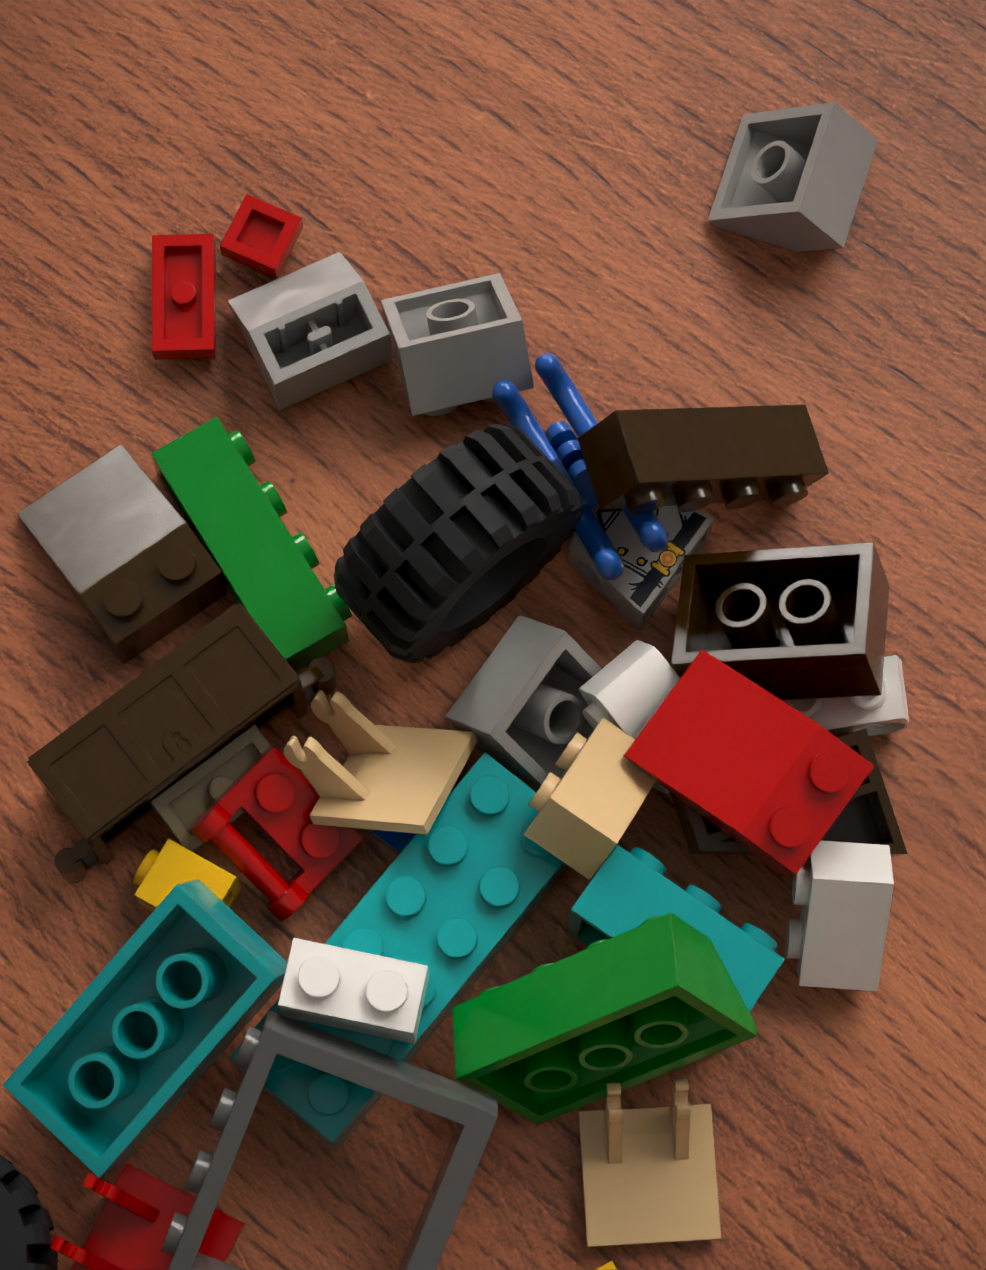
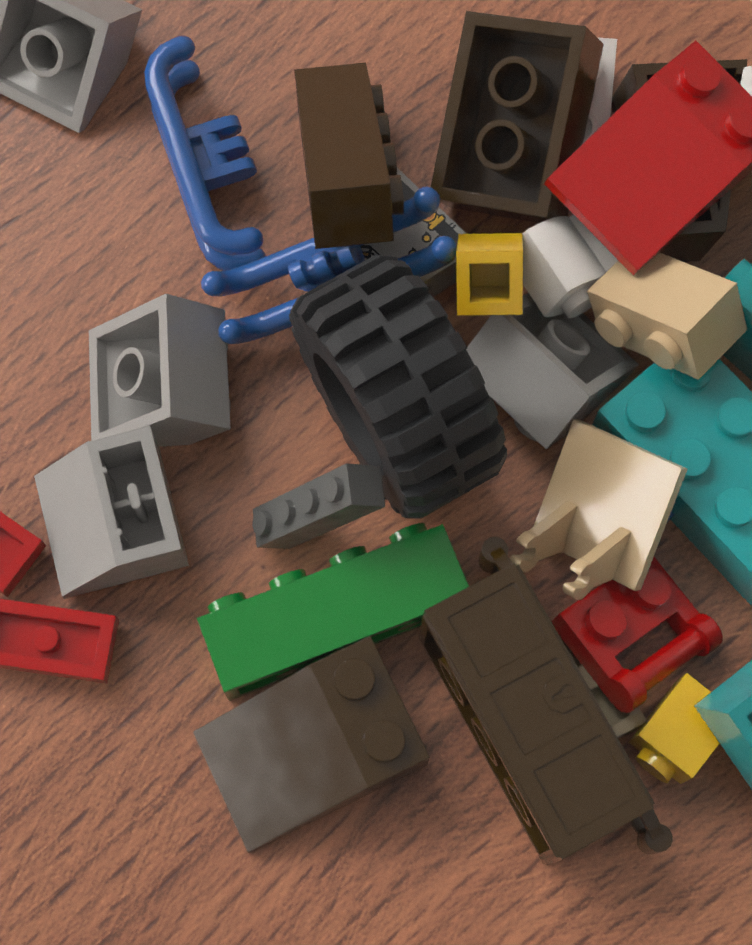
camera: 80 degrees left, 0 degrees up
(336, 498) = (319, 506): none -> dark grey piece
(598, 616) = (489, 274): none -> yellow brick
(696, 330) = (201, 156): none -> blue piece

